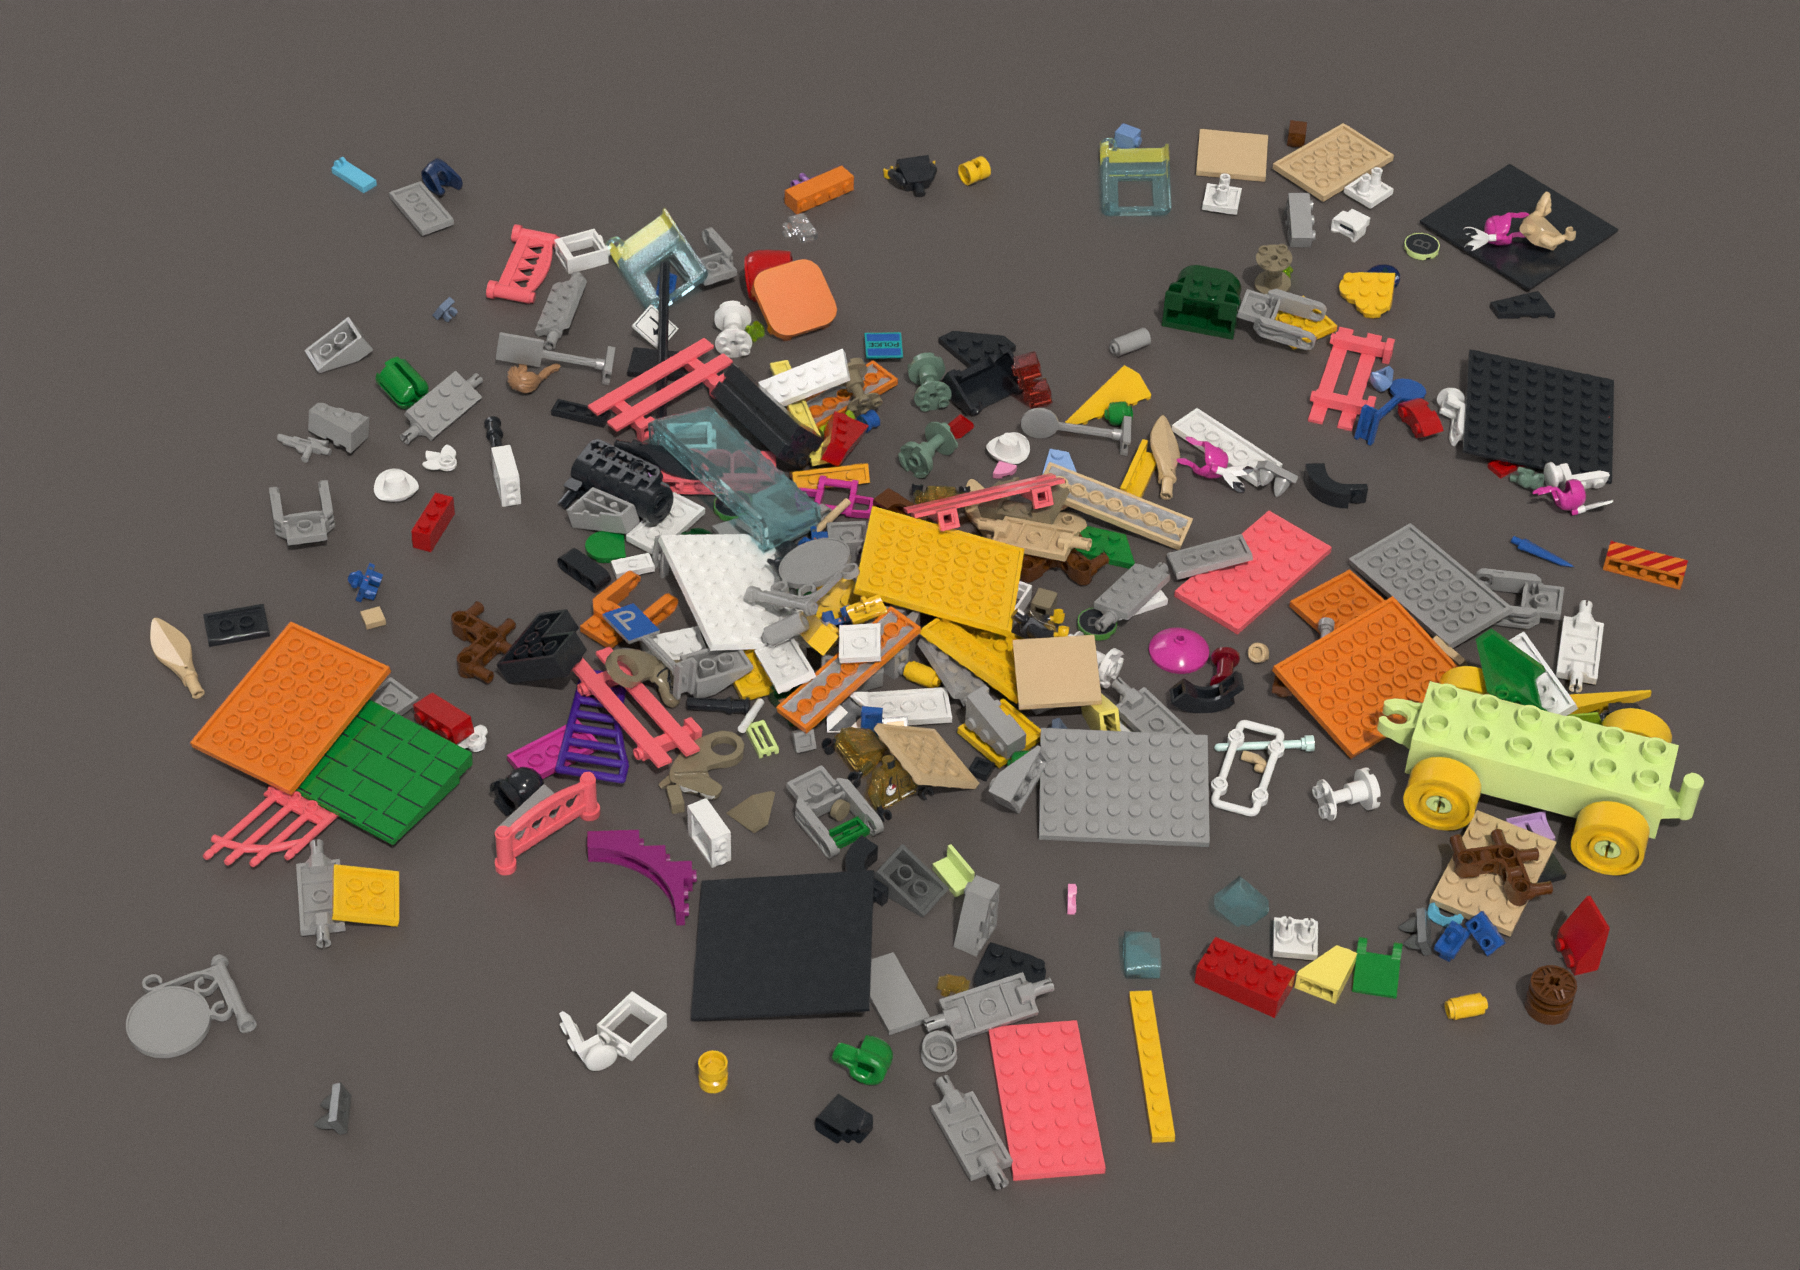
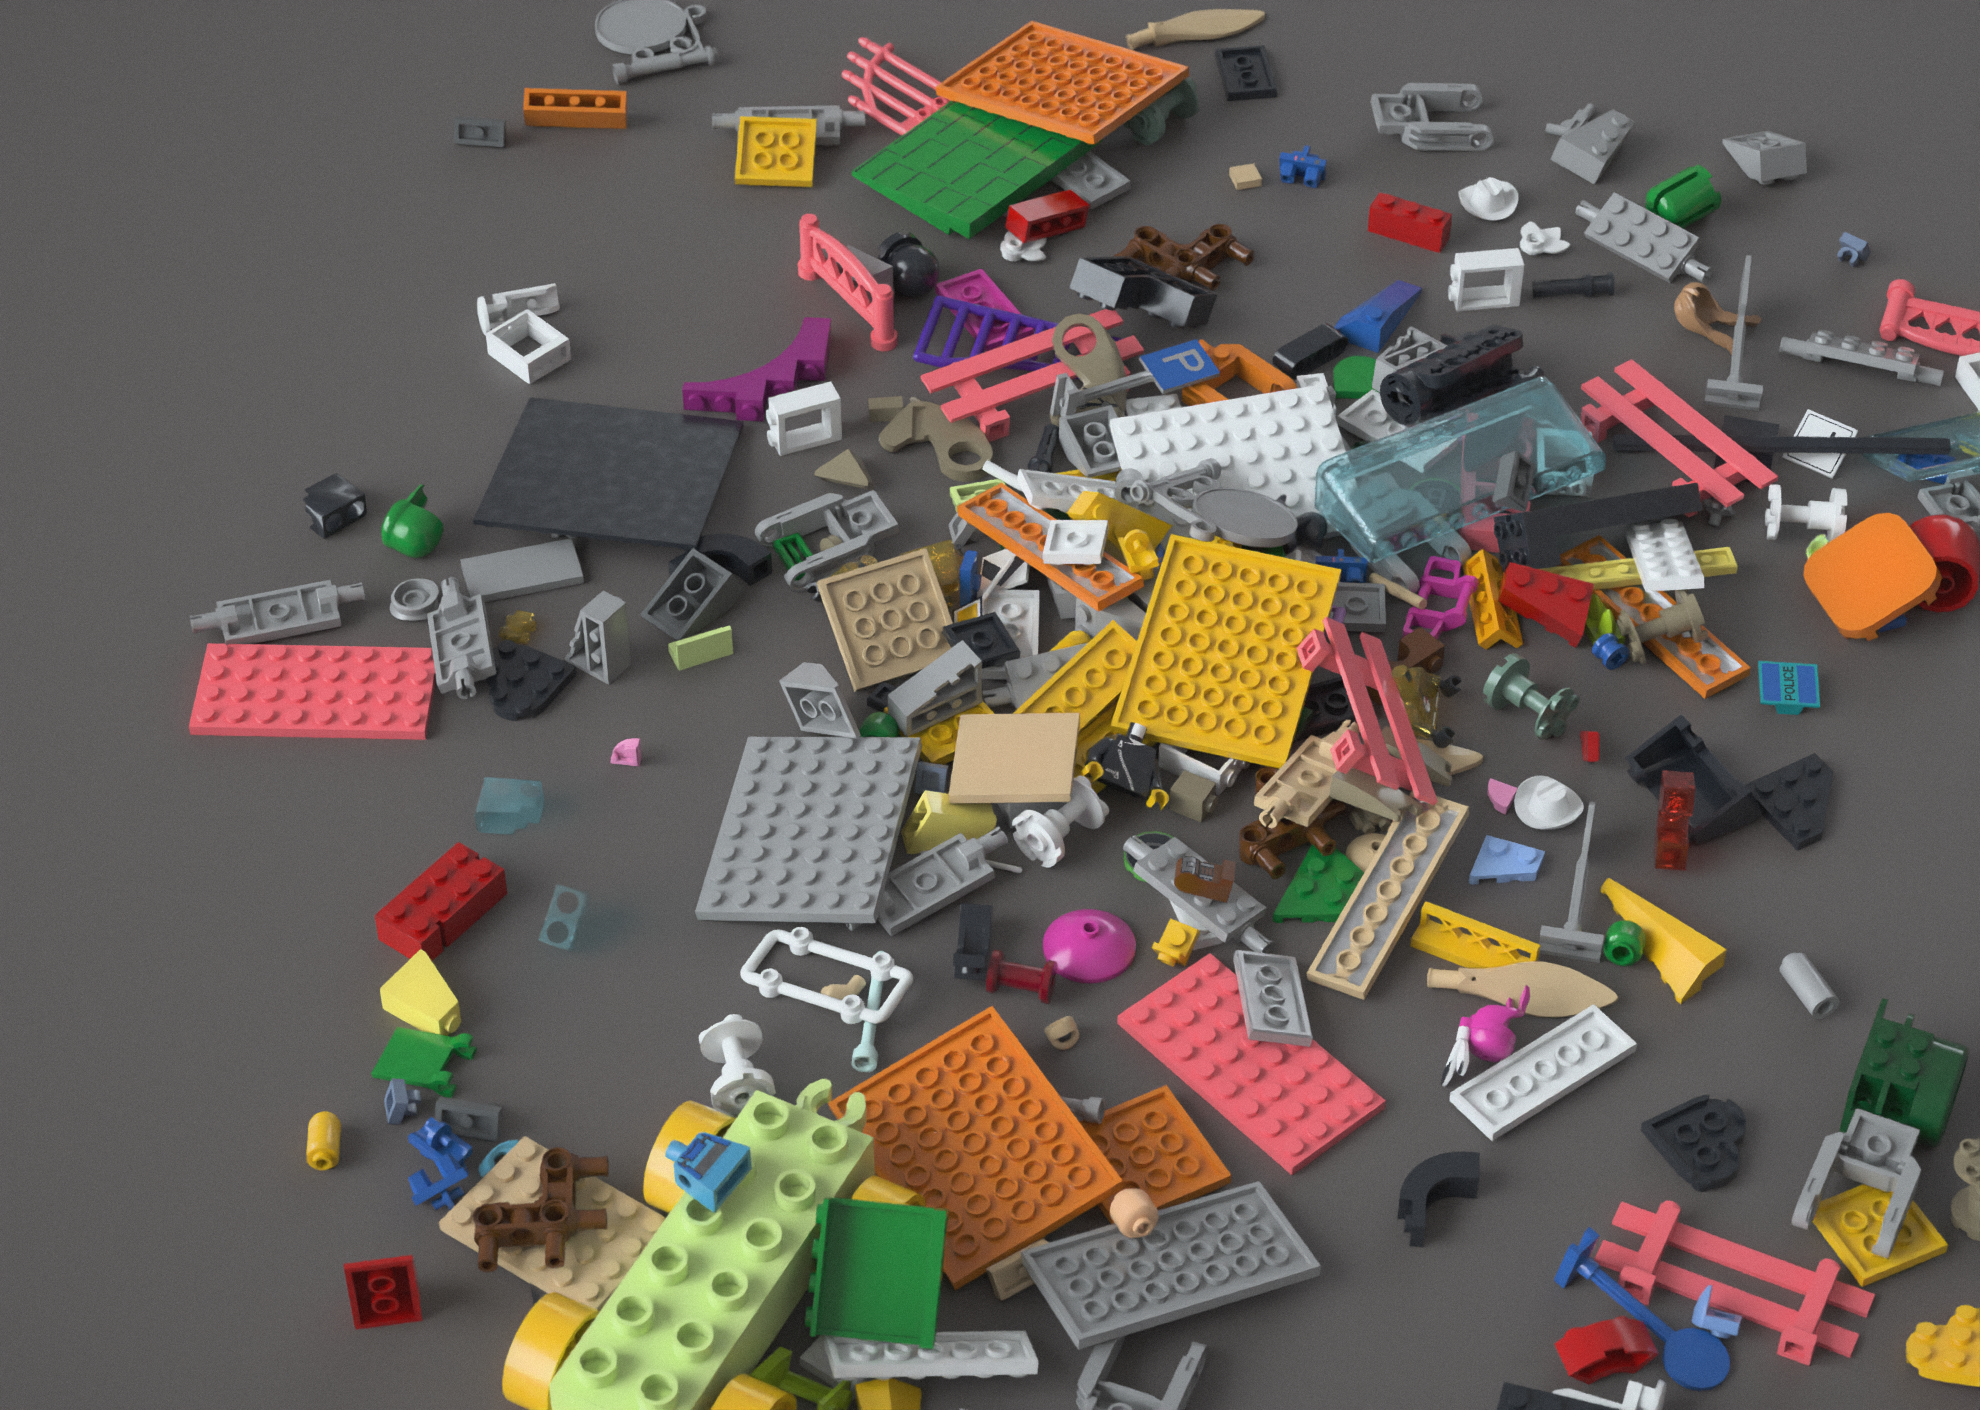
camera: 100 degrees right, 0 degrees up
(311, 1039) = (575, 108): none -> orange brick
(539, 538) = (1379, 316): none -> blue wedge
(579, 413) = (1645, 355): black tile -> none
(713, 1071) = (437, 401): yellow wheel -> none
(750, 442) = (1514, 481): none -> dark grey slope
(927, 371) = (1702, 715): sand green piece -> none
(932, 711) = (985, 637): none -> black plate
(1137, 575) = (1205, 878): none -> reddish brown leg
(1151, 1067) = (335, 797): yellow plate -> none
(1173, 605) = (1176, 943): none -> yellow bracket
(1256, 387) = (1699, 1140): none -> black plate
(1282, 477) = (1461, 1105): light grey tile -> none
(1295, 938) = (498, 972): white plate -> none
(1409, 593) = (1134, 1213): none -> light nougat head
(1422, 971) = (400, 1101): none -> sand blue tile
(1501, 735) = (709, 1167): none -> dark azure torso
(1550, 994) = (303, 1233): reddish brown wheel -> none

